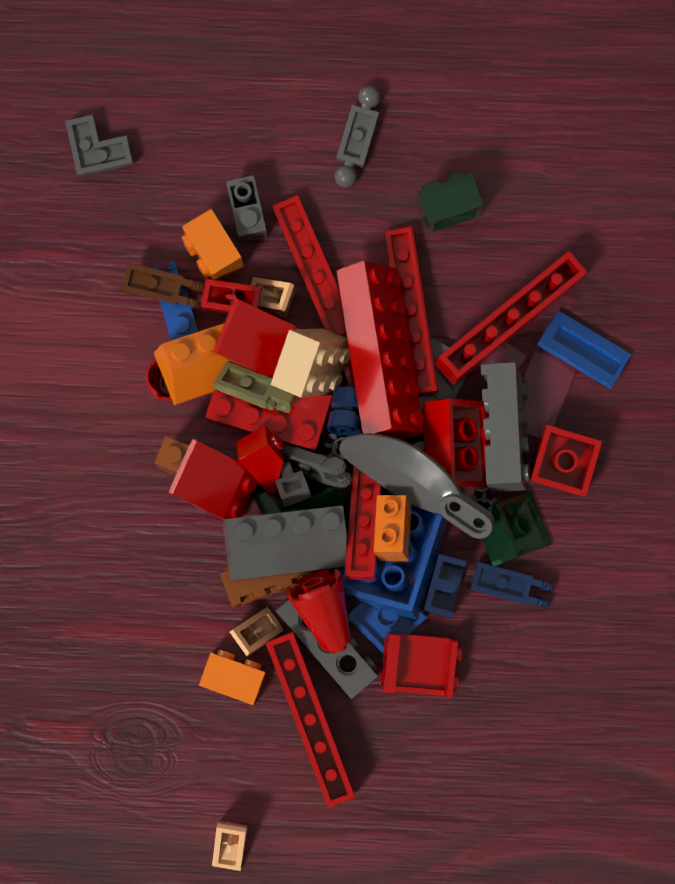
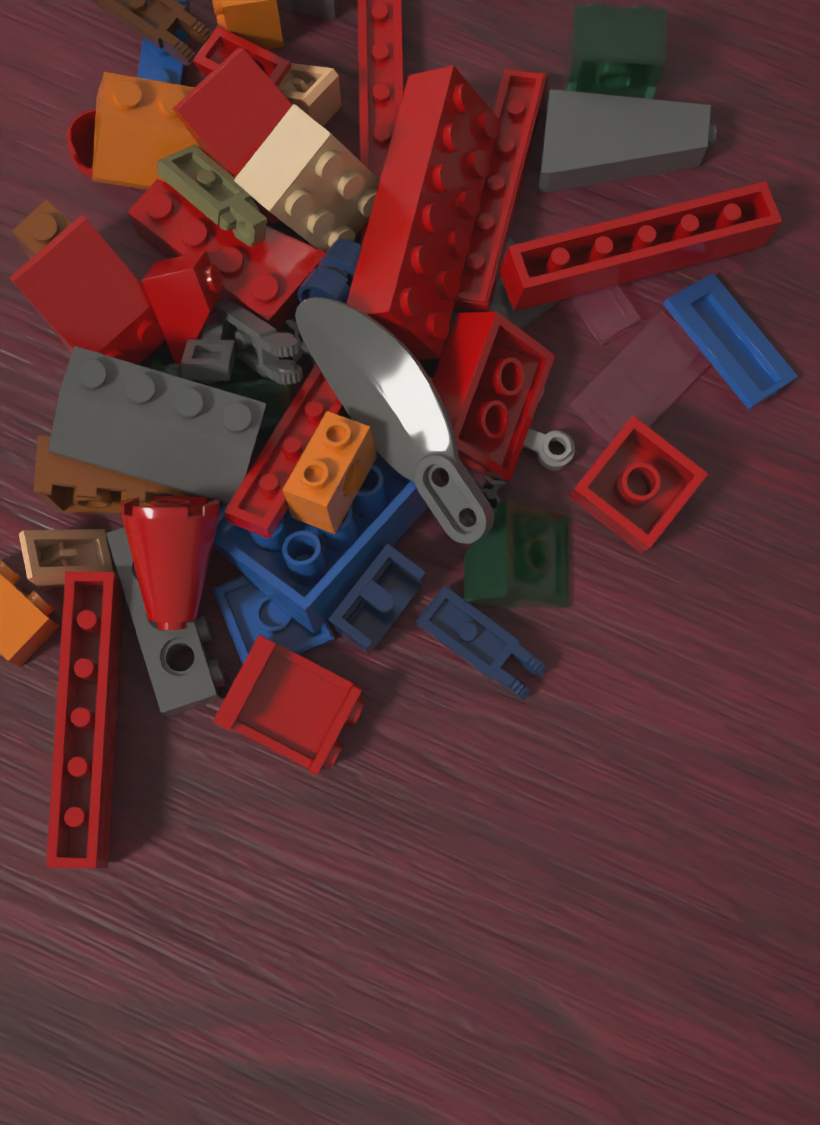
camera: 20 degrees right, 5 degrees down
(467, 251) = (619, 138): none -> dark grey slope
(505, 427) = (567, 396): dark grey wedge -> none

